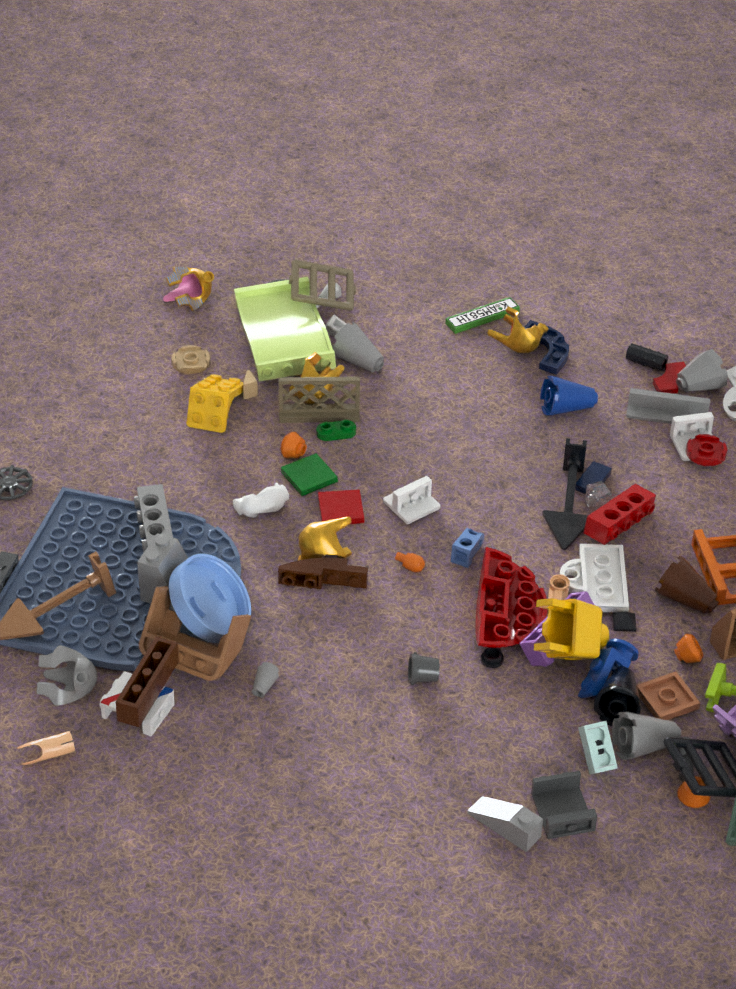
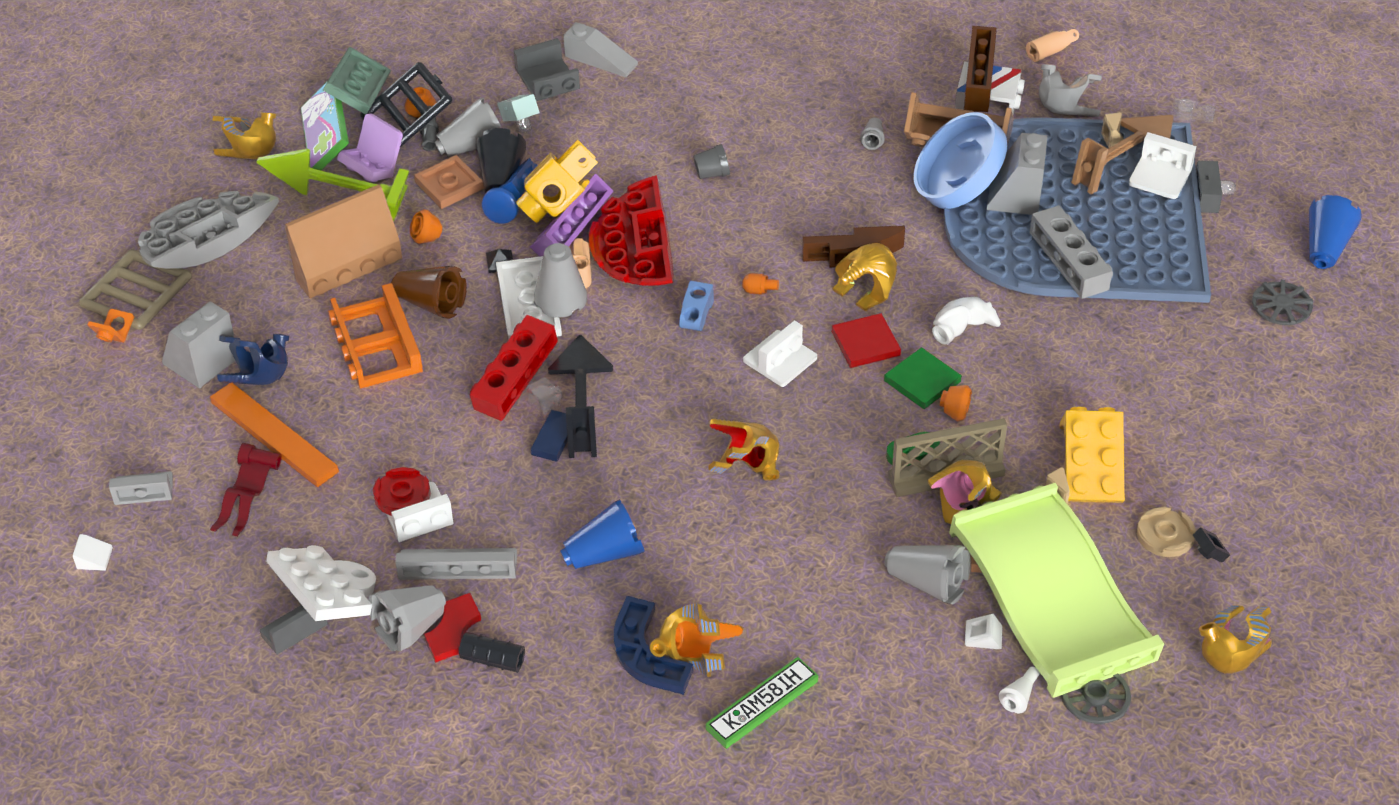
camera: 170 degrees right, 5 degrees up
(36, 579) = (1163, 166): none -> white bracket
(54, 622) = (1111, 129): none -> tan slope
(169, 341) = (1210, 545): none -> black plate
(313, 299) = (1026, 698): dark tan bar -> none
(453, 434) = (750, 444): none -> pearl gold piece
(578, 553) = (559, 283): none -> light grey cone

